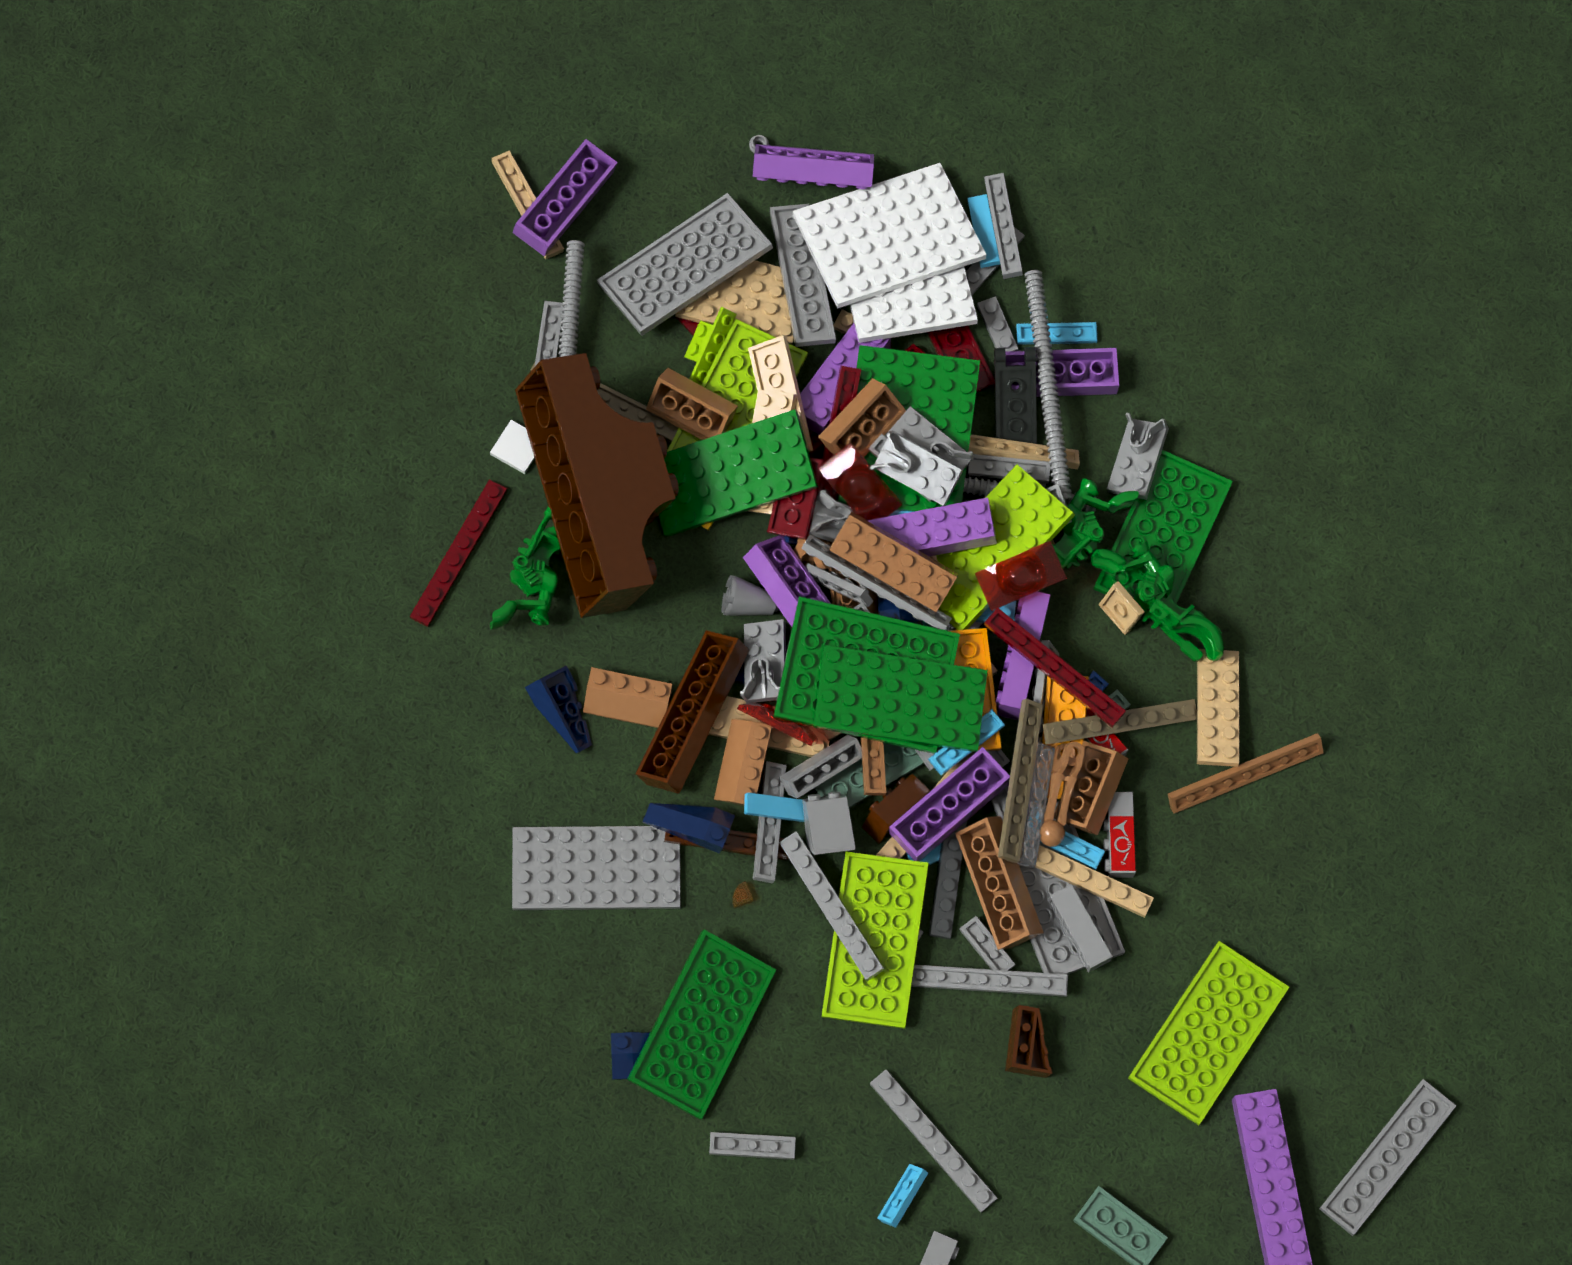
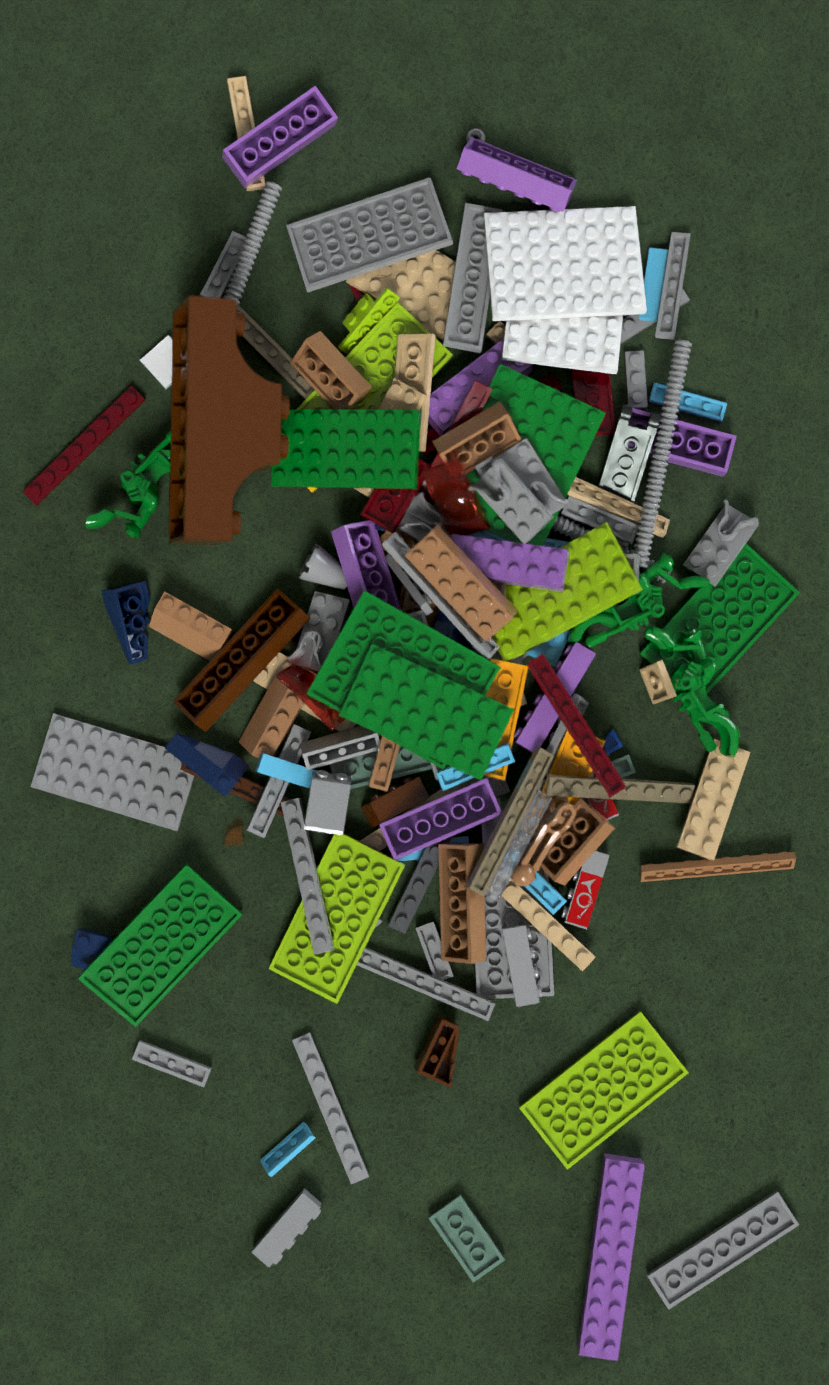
camera: 25 degrees right, 15 degrees up
(1020, 575) = (574, 631): clear red slope -> none

